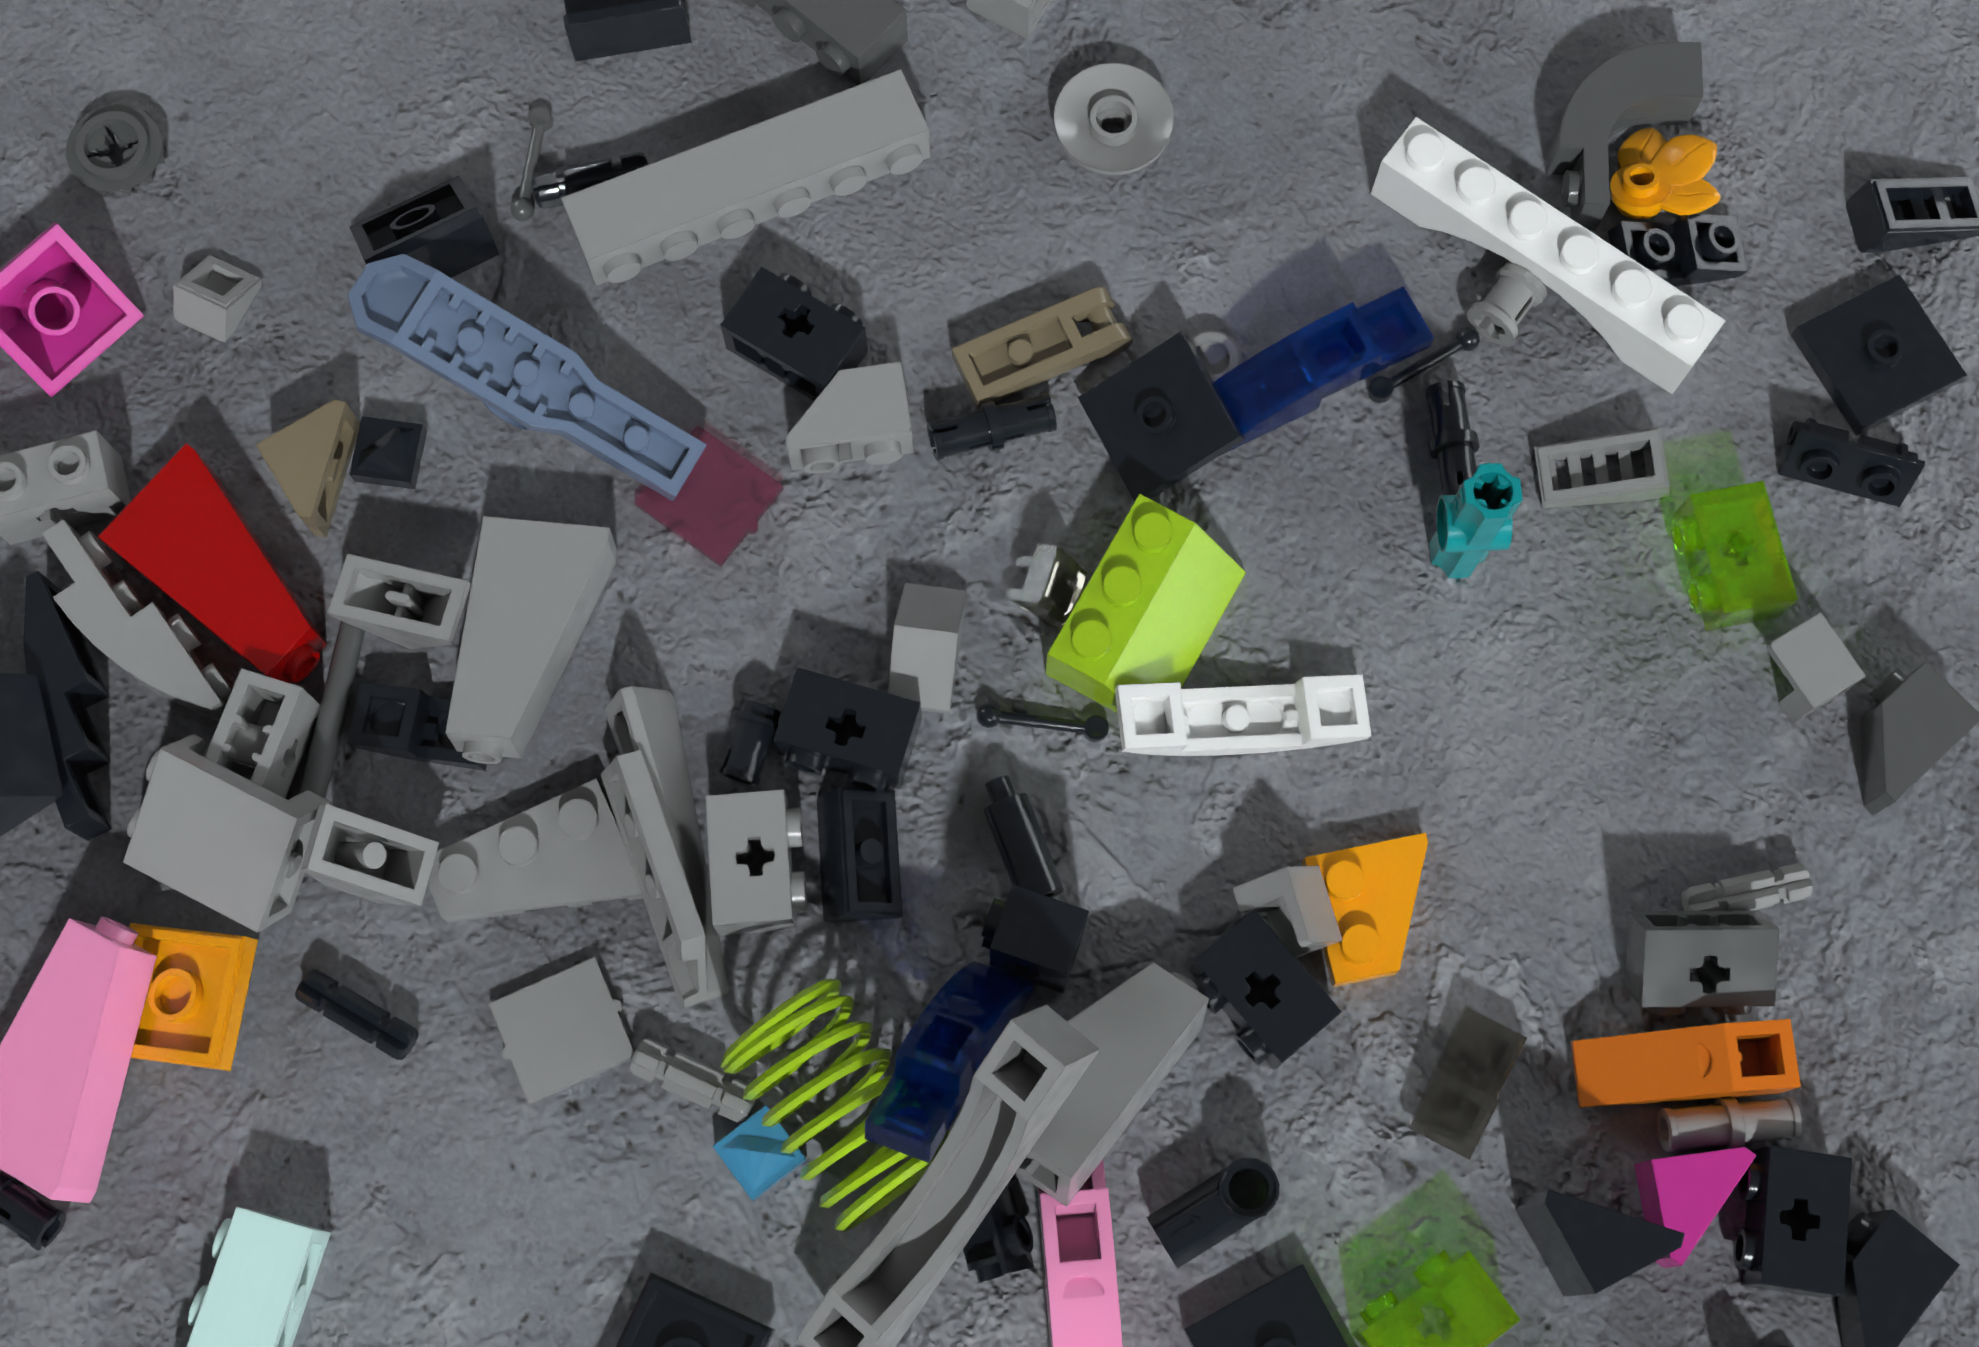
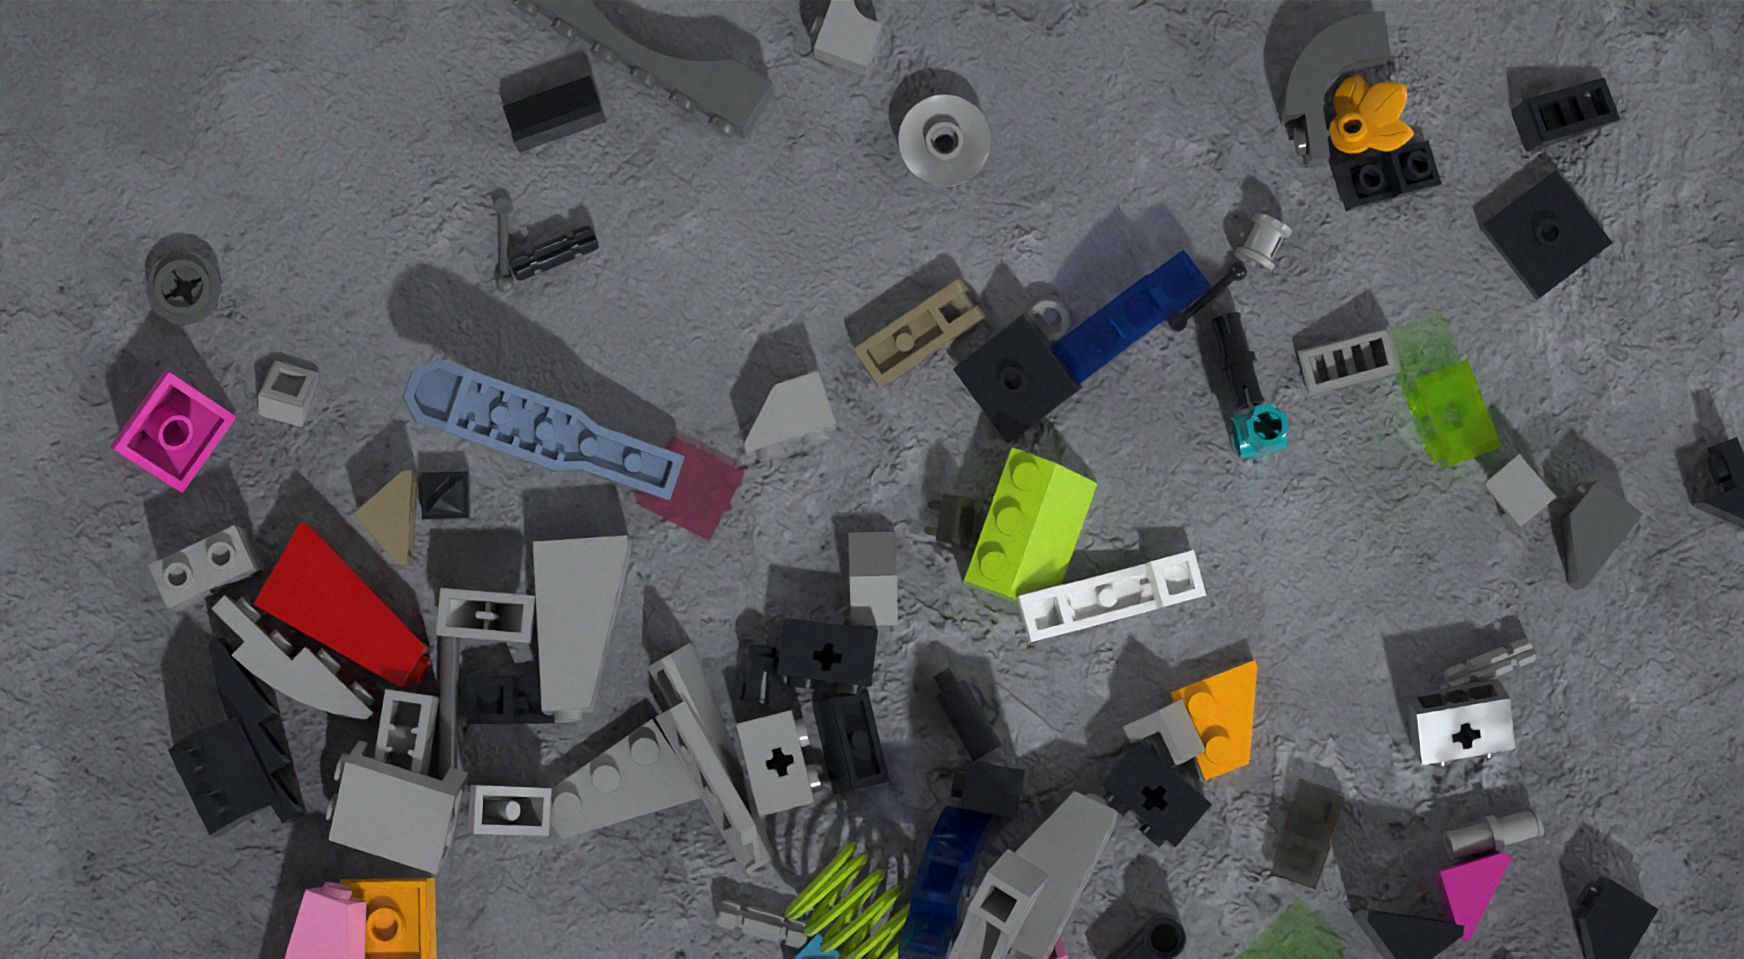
camera: 10 degrees left, 10 degrees up
(356, 1014) = (515, 916): black axle -> none
(433, 227) = (434, 319): black slope -> none
(562, 1030) = (662, 902): light grey piece -> none
(748, 178) = (674, 235): light grey brick -> none
(783, 304) = (706, 356): black brick -> none
(991, 426) = (892, 402): black pin -> none
(1094, 728) = (1004, 620): black hinge -> none
(1631, 307) = (1329, 219): white arch -> none
(1686, 1064) = (1456, 799): orange slope -> none
(1817, 1194) = (1555, 919): black brick -> none
(1864, 468) = (1554, 327): black hinge -> none

